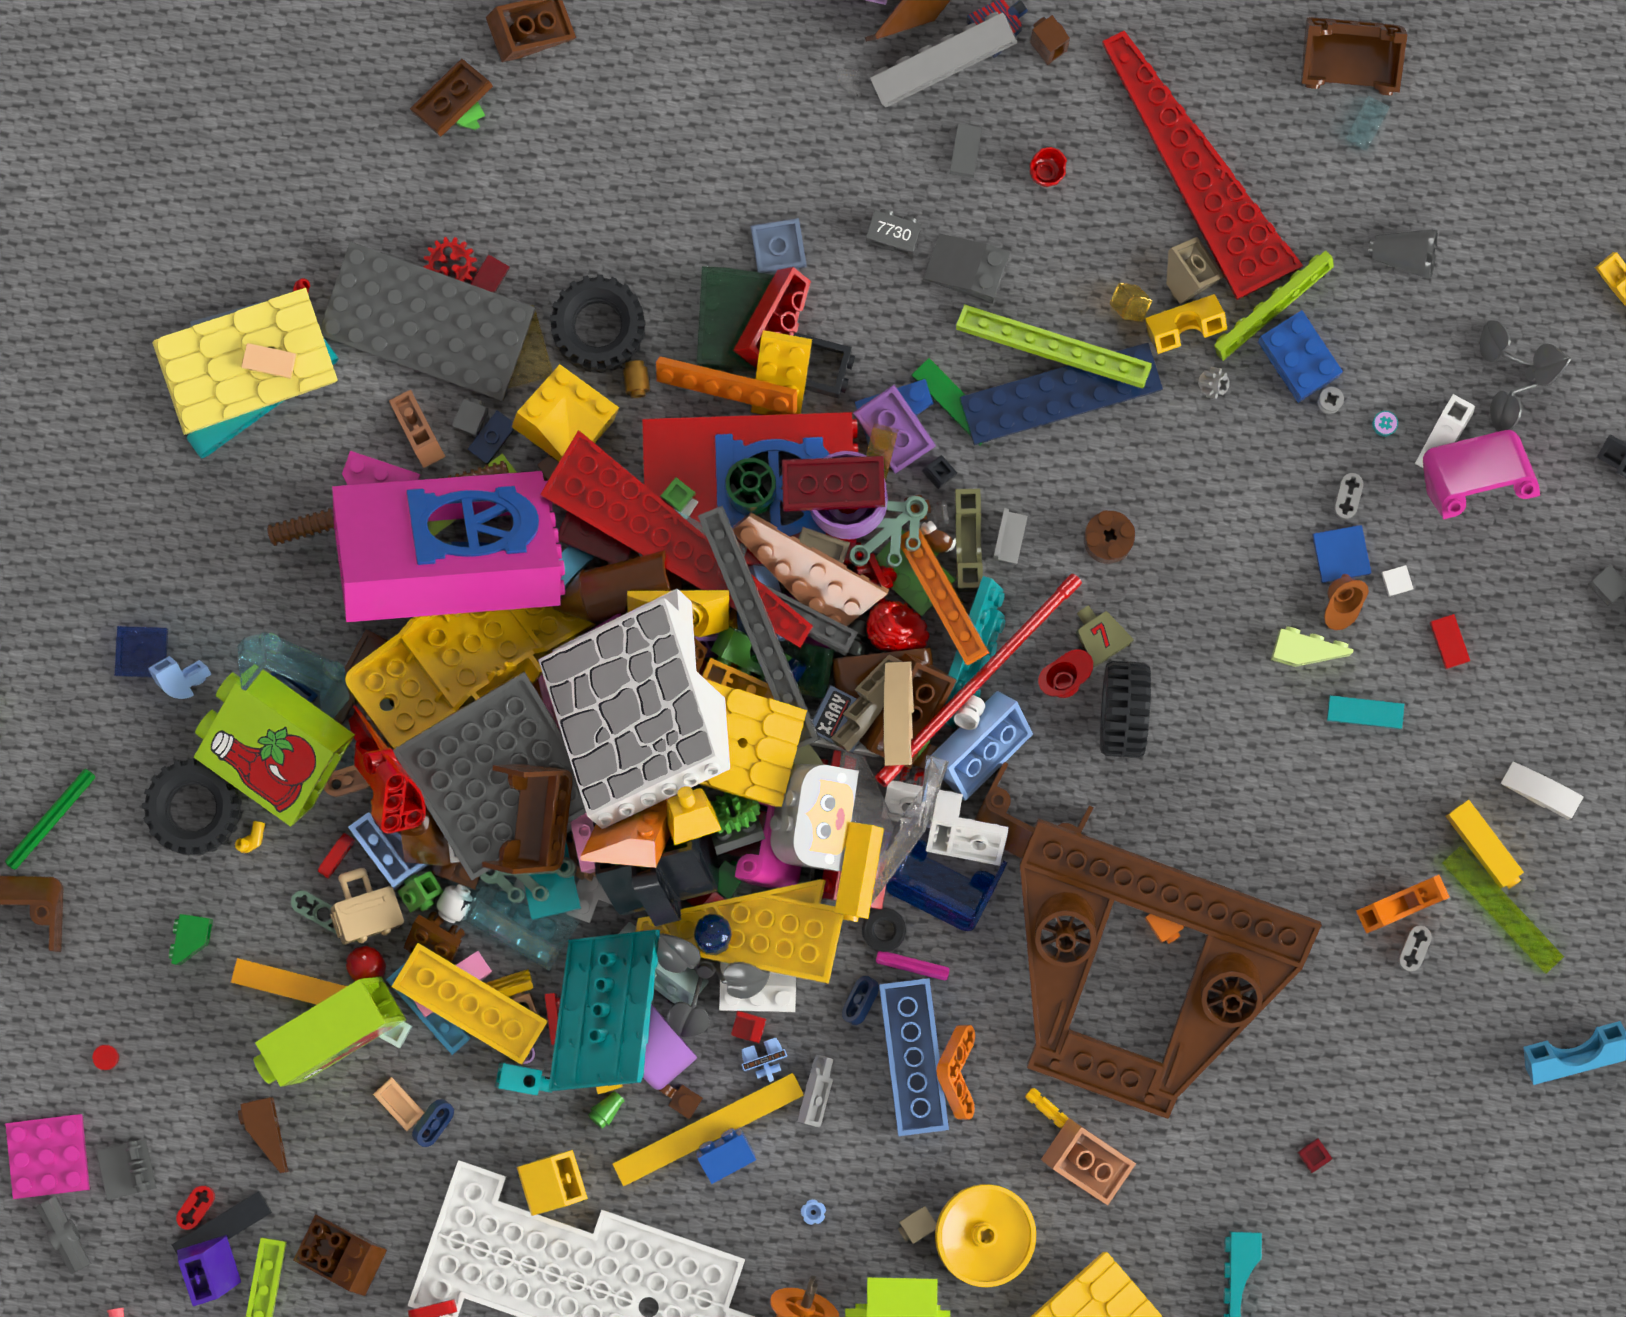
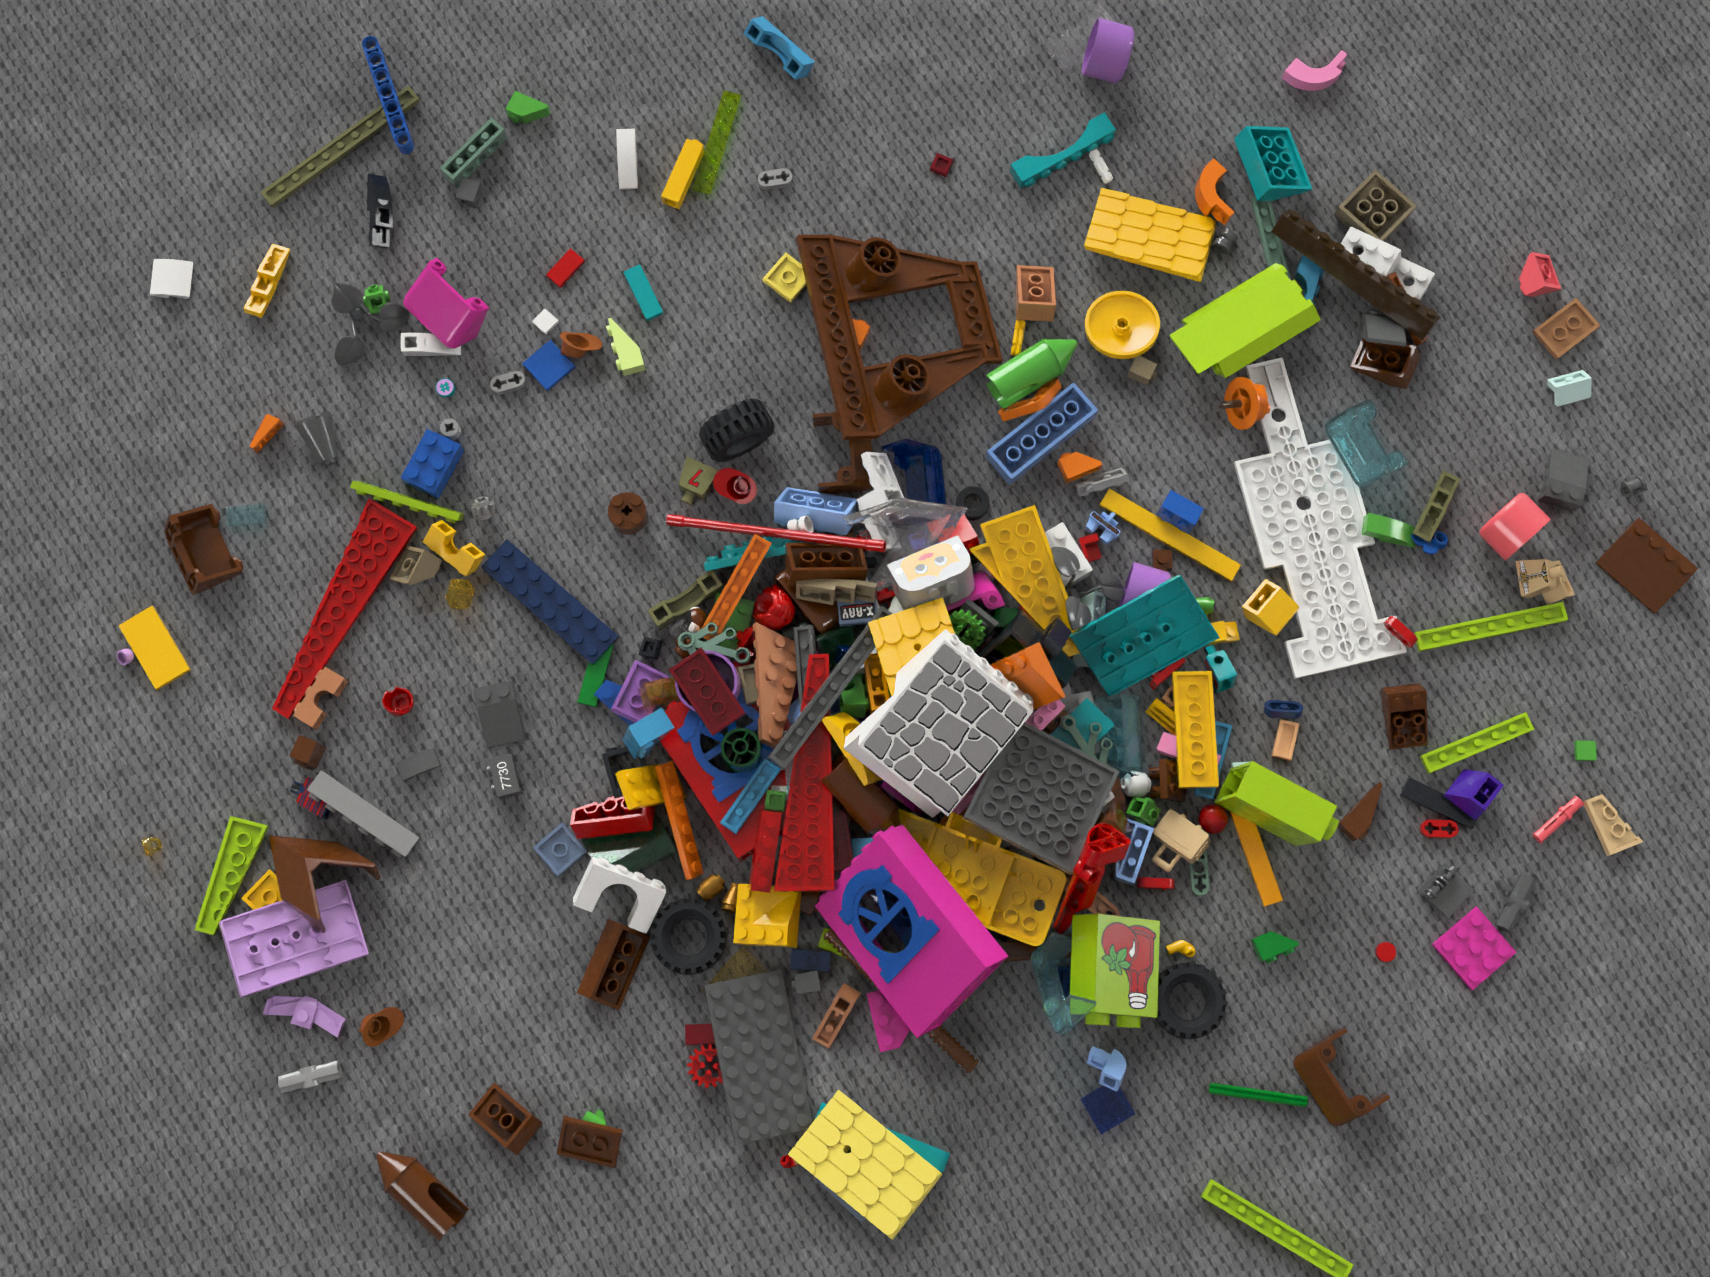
camera: 125 degrees left, 5 degrees down
(269, 360) = (855, 1145): light nougat tile -> none
(540, 820) = (1056, 746): reddish brown windscreen -> none
(561, 1111) = (1227, 632): none -> yellow brick
(610, 391) = (730, 900): none -> pearl gold cone
(619, 228) = (613, 964): none -> reddish brown slope
(630, 450) = (765, 850): none -> red brick
(690, 815) = (990, 642): yellow torso -> none
(698, 468) = (750, 796): none -> dark azure tile
(712, 934) = (1049, 598): clear blue hair -> none
(715, 267) = (602, 874): none -> white arch
(813, 1205) = (1177, 434): light blue plate -> none
(836, 402) = (646, 733): none -> dark azure wedge
(852, 1074) = (1077, 466): none -> orange slope
(858, 871) = (951, 525): yellow brick -> none
(860, 1000) = (1026, 489): dark blue plate -> none
(898, 713) = (833, 560): tan slope -> none
(912, 965) = (983, 471): dark pink axle -> none
(995, 1093) = (1030, 370): none -> bright green piece
(1010, 537) = (666, 577): light grey panel -> none
(1053, 346) = (521, 623): lime plate -> none
(1096, 68) = (326, 683): none -> nougat arch
(1283, 885) = (786, 278): none -> light yellow plate
(1402, 904) = (748, 198): orange arch -> none
(1453, 200) = (267, 429): none -> orange slope
(1538, 405) = (371, 298): none -> bright green brick

